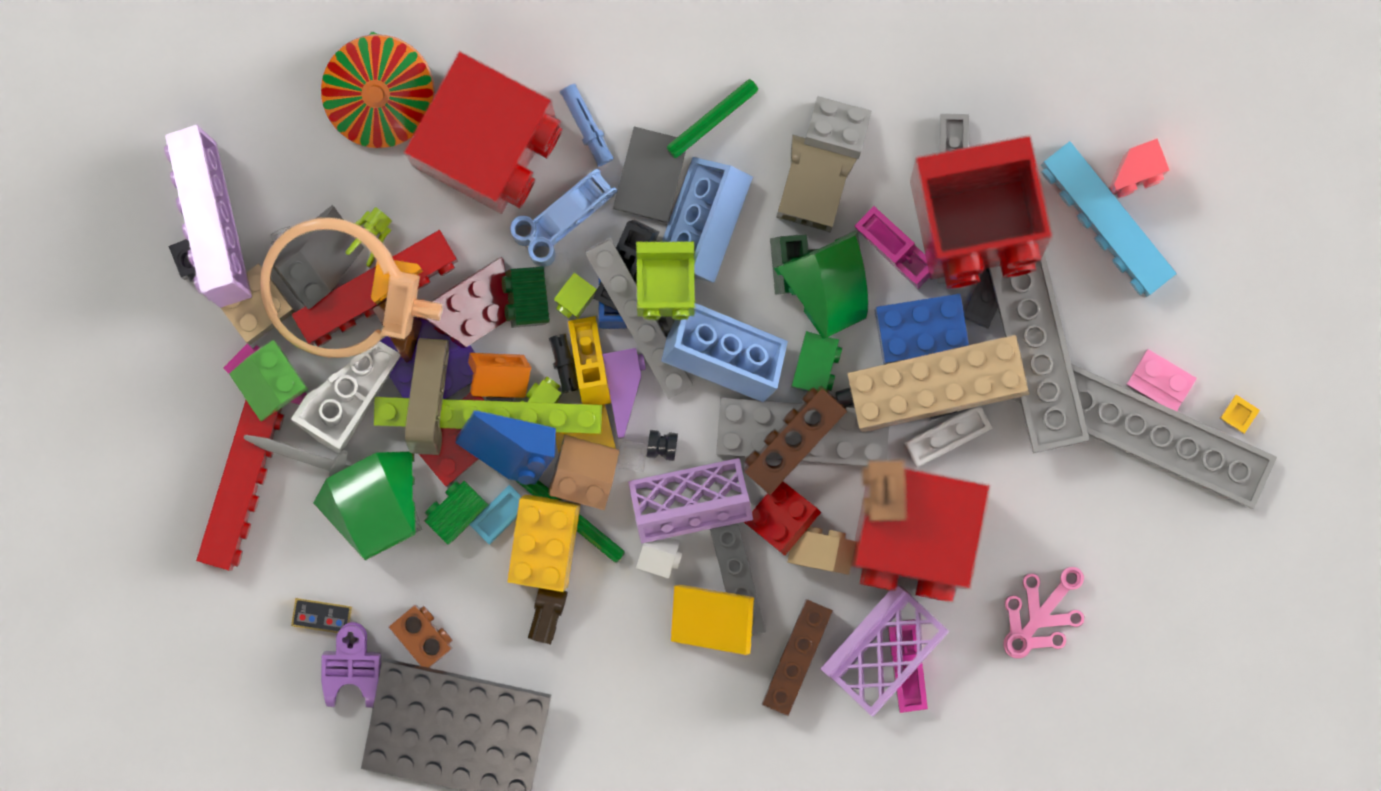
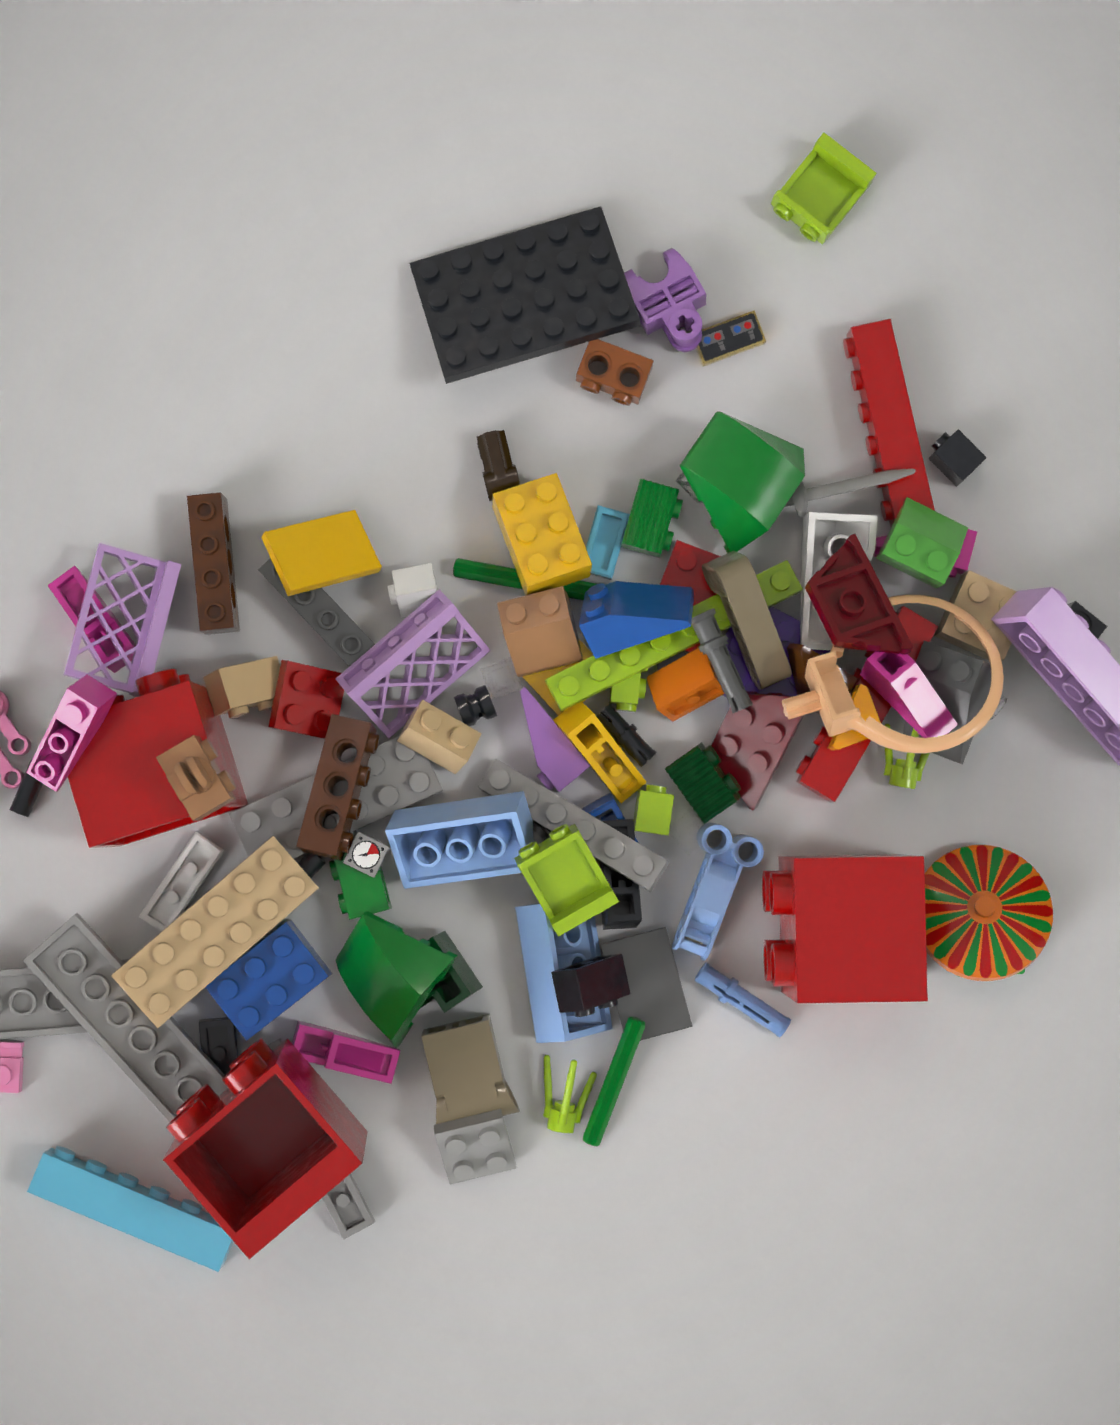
camera: 150 degrees right, 0 degrees up
(189, 688) = (823, 189): none -> lime panel
(204, 433) = (956, 456): none -> black brick
(342, 277) = (908, 692): none -> dark pink slope
(345, 362) = (855, 604): none -> dark red wing
(464, 389) = (714, 645): none -> dark grey pin
(689, 196) = (591, 984): none -> black brick
(701, 436) = (439, 737): none -> tan brick
(762, 114) = (563, 1113): none -> lime plant
(800, 379) = (366, 854): none -> tile
(957, 573) = (71, 730): none -> dark pink slope
(1022, 567) = (26, 795): none -> black axle
(1139, 166) = (127, 1287): coral slope -> none

